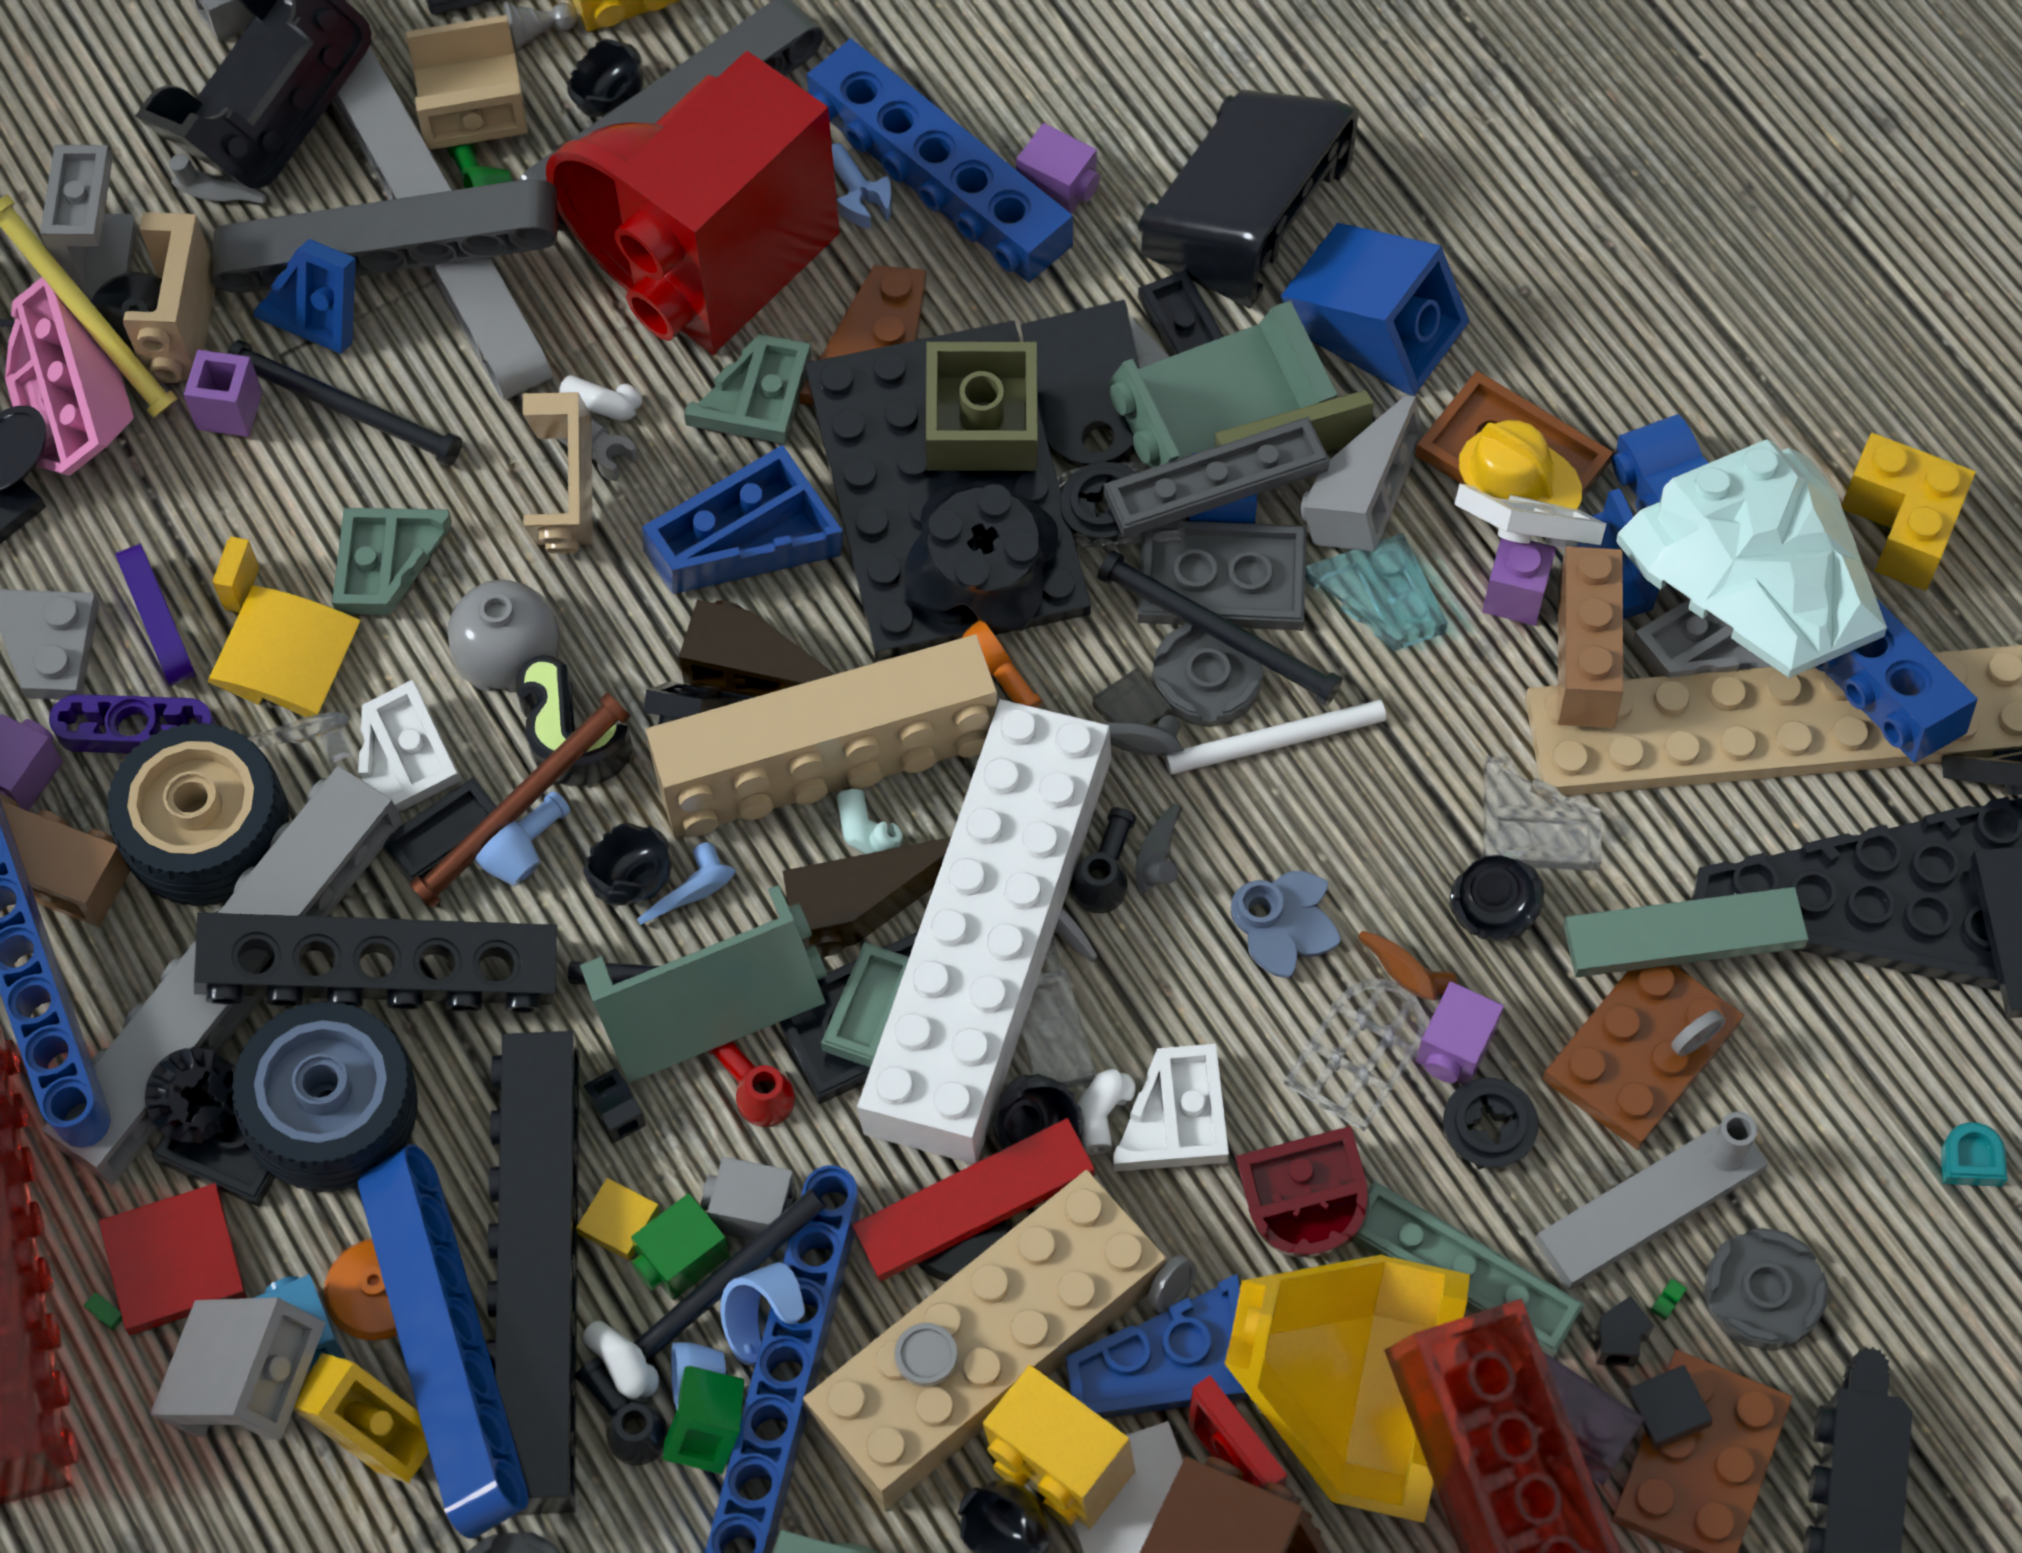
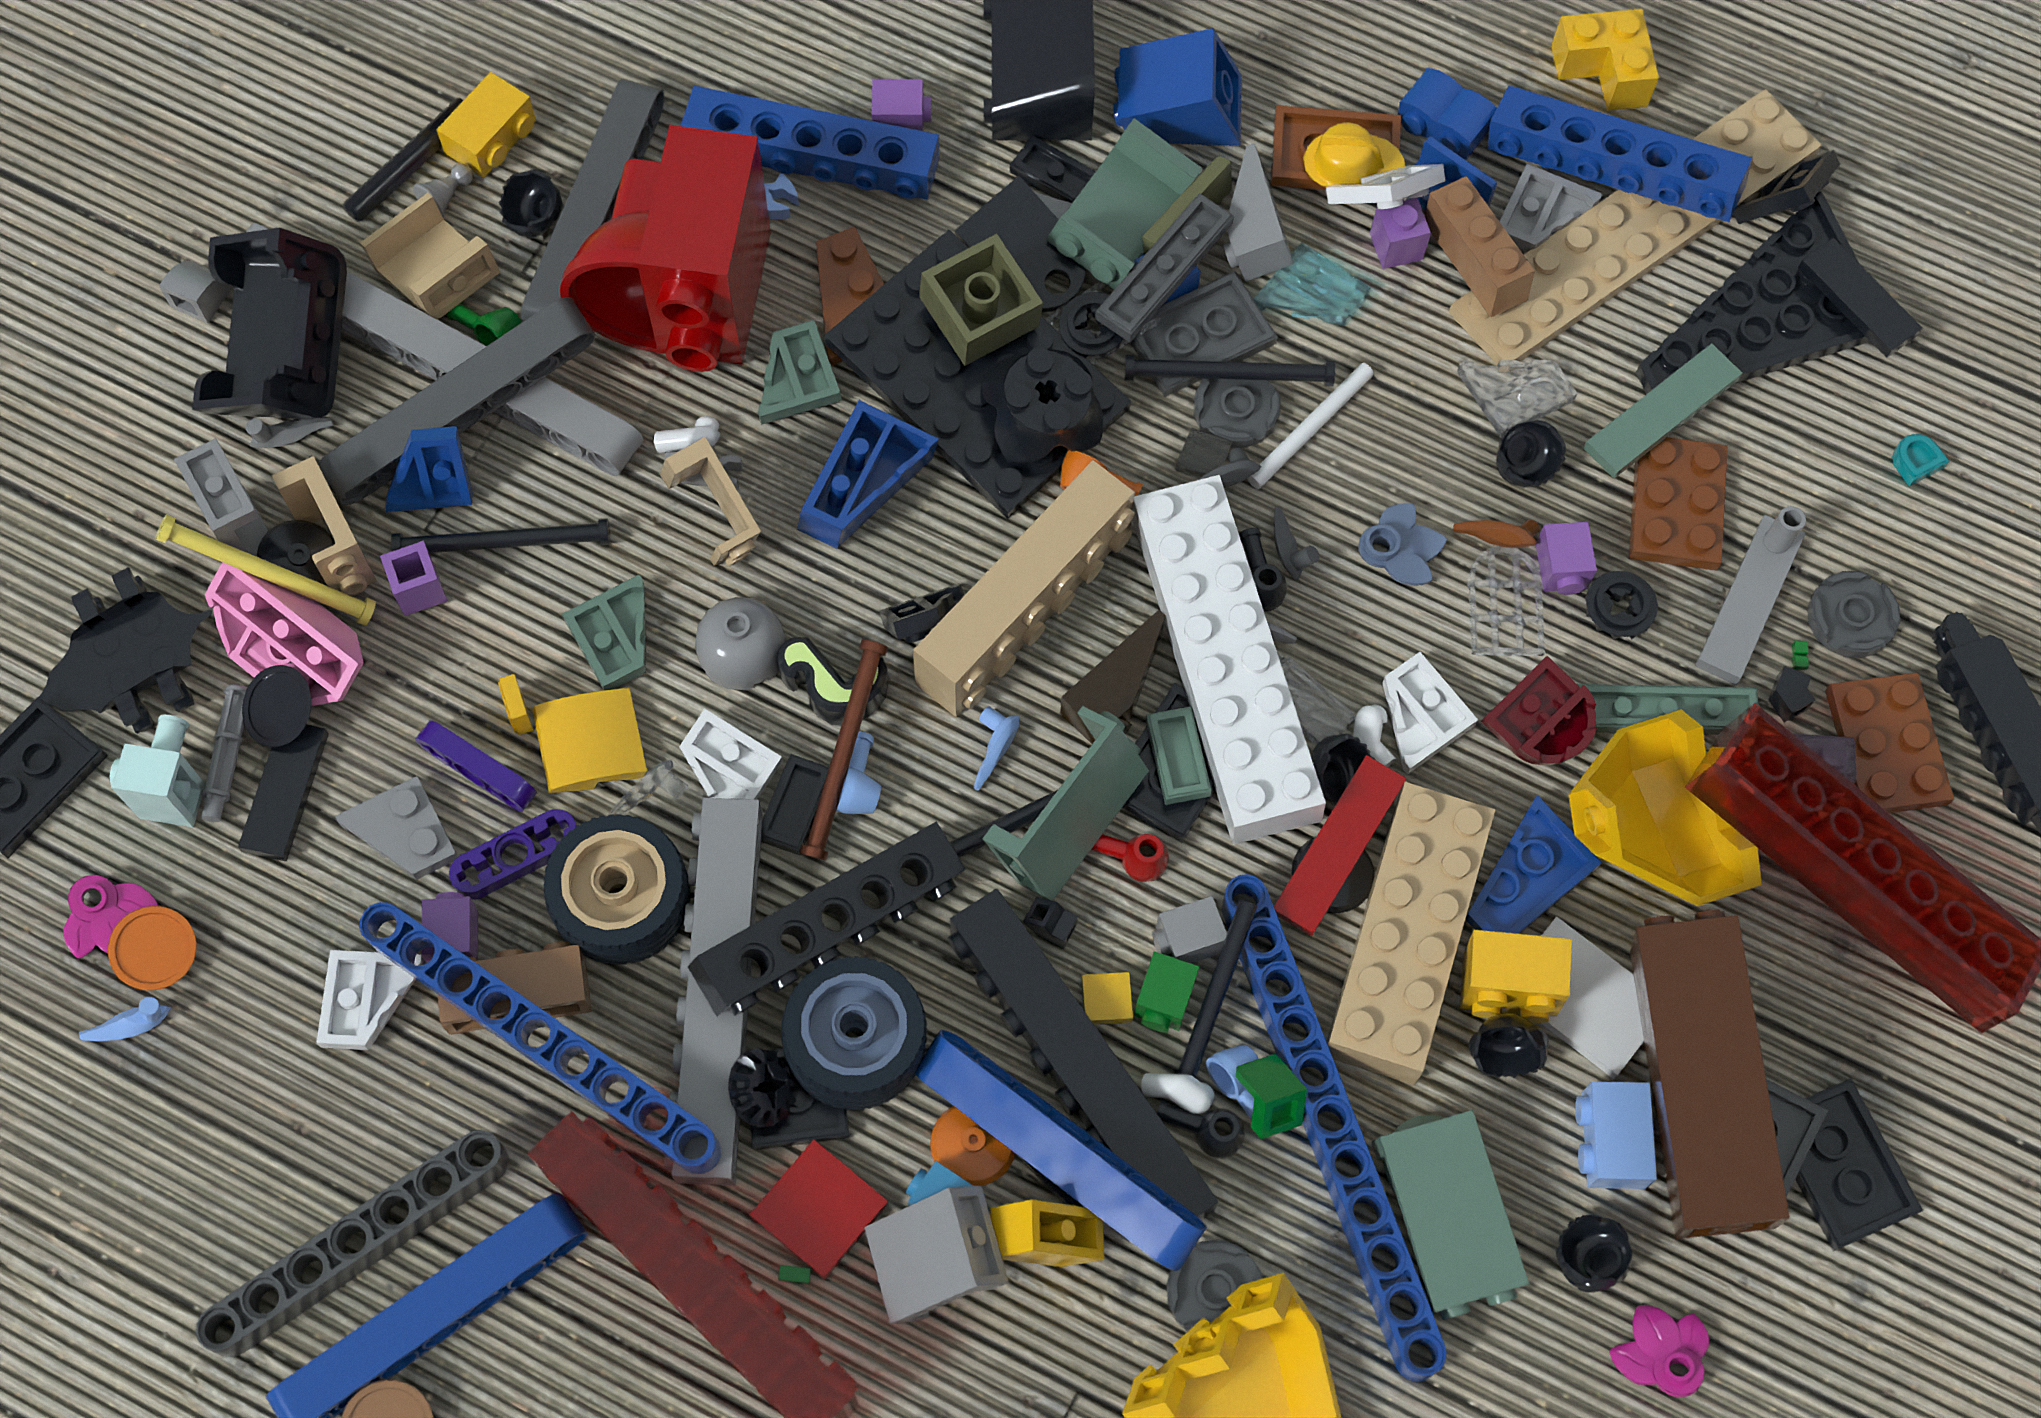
camera: 35 degrees left, 5 degrees up
(628, 865) = (947, 752): black hair -> none
(741, 1306) = (1253, 975): light blue helmet -> none
(742, 652) = (925, 562): dark brown slope -> none
(859, 830) = (1086, 642): light aqua arm -> none
(926, 1354) = (1393, 964): light grey piece -> none
(1172, 1283) = (1500, 826): light grey piece -> none
(1230, 1437) = (1616, 903): red tile -> none
(1669, 1407) = (1859, 720): black tile -> none
(1698, 1033) = (1719, 471): light grey piece -> none
(1763, 552) = (1557, 132): light aqua wedge -> none

